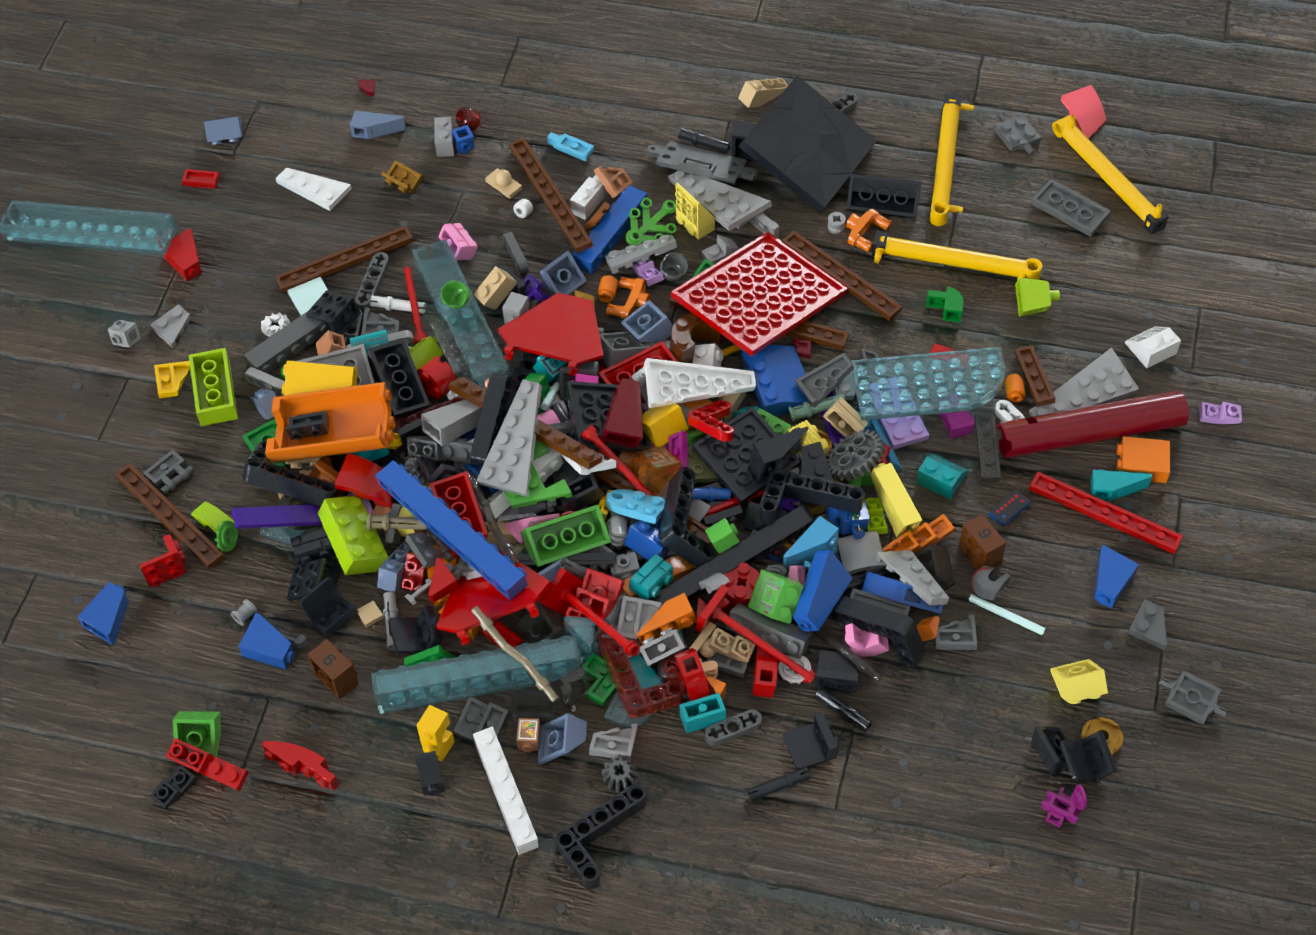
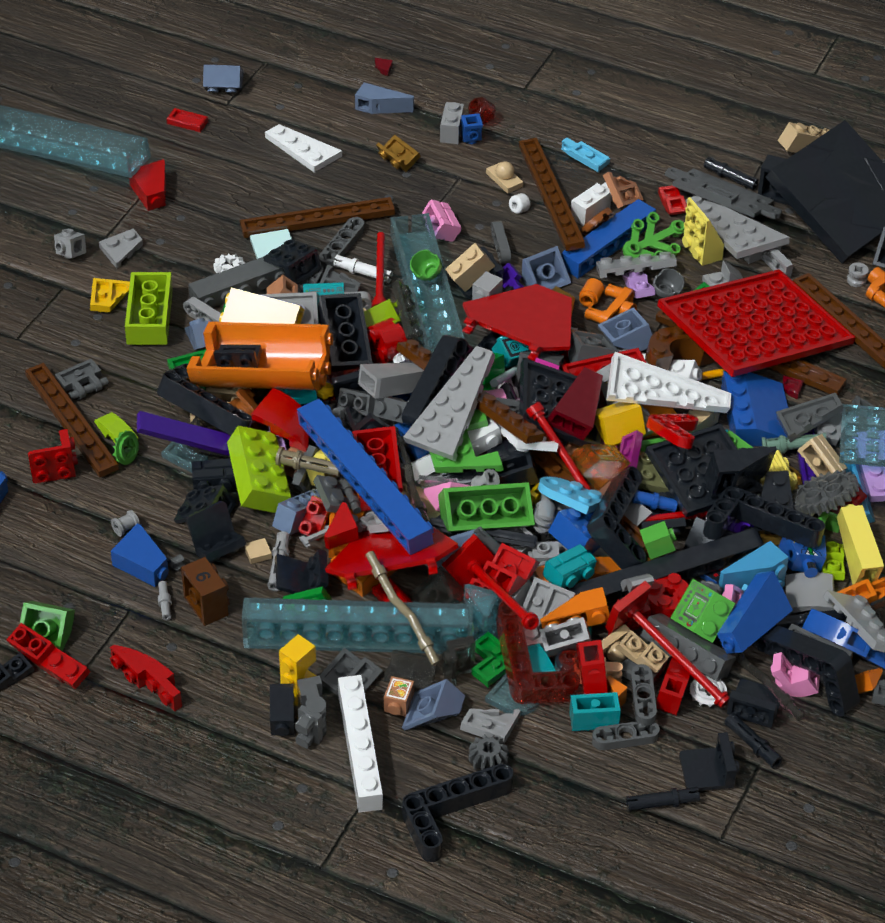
camera: 10 degrees right, 10 degrees down
(298, 682) = (164, 600): none -> light grey bar
(457, 770) = (311, 712): none -> dark grey hips
(556, 508) = (485, 480): none -> light grey bush
(658, 178) = (672, 200): none -> red slope
(738, 696) = (647, 686): none -> dark grey beam

